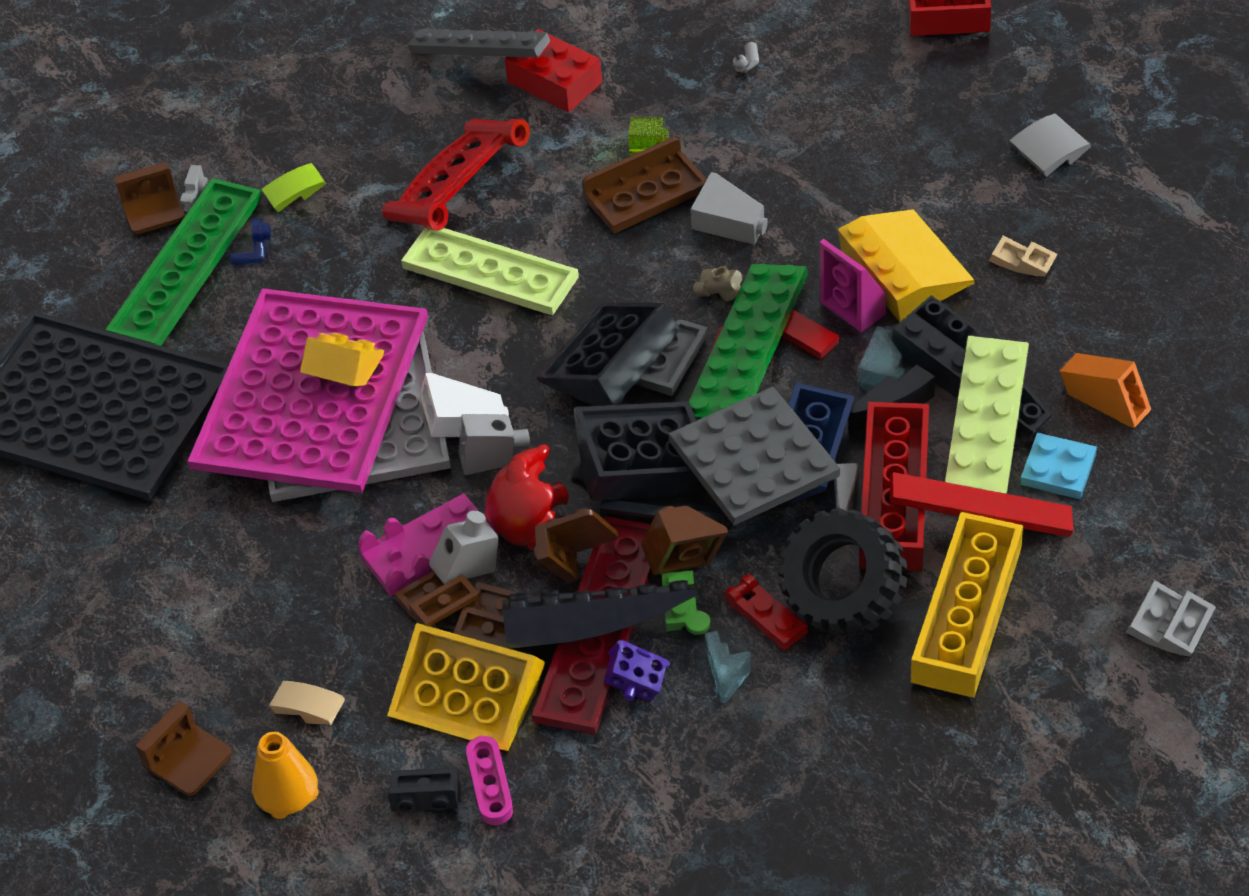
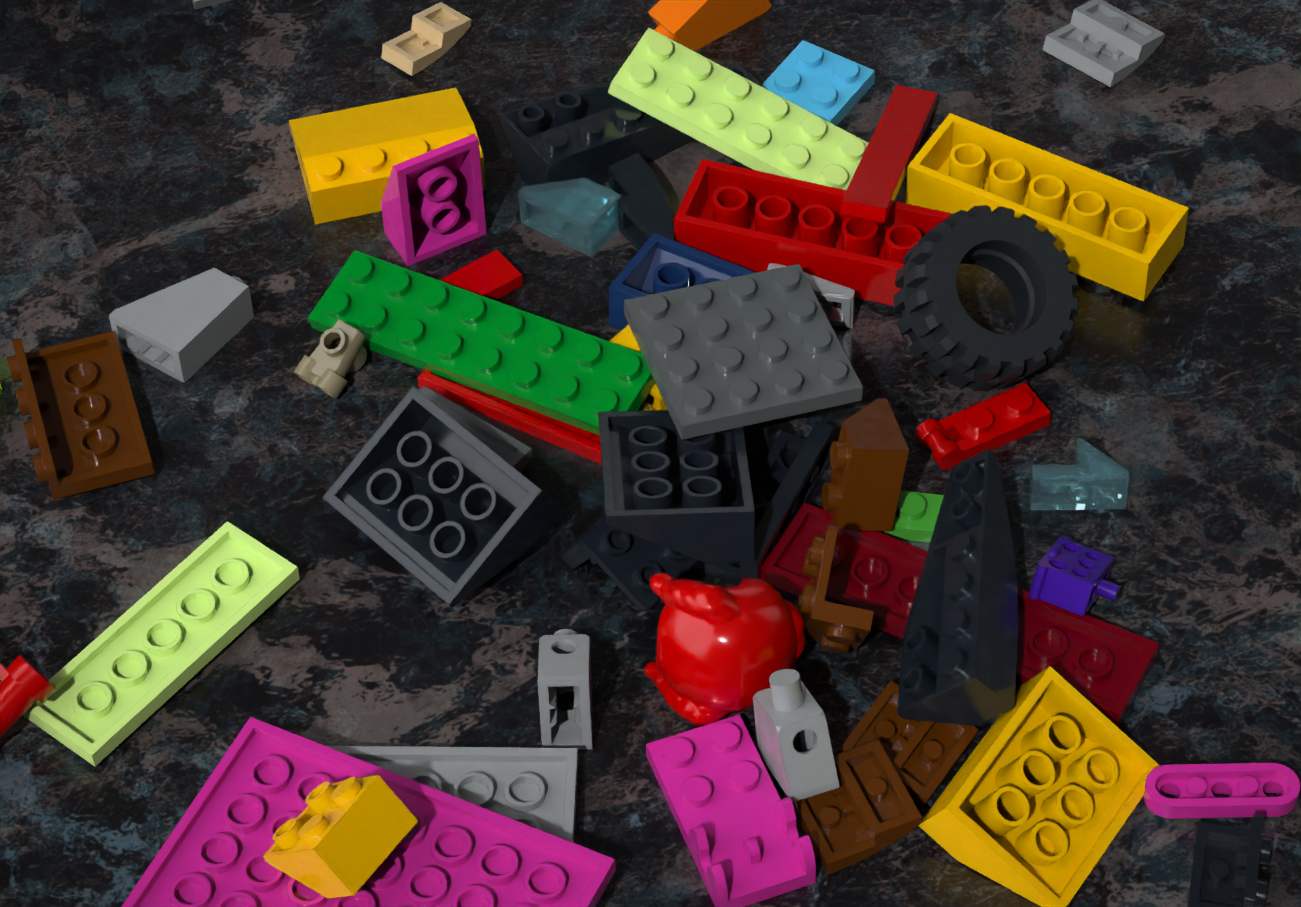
camera: 80 degrees left, 0 degrees up
(448, 399) = (479, 712): white slope -> none

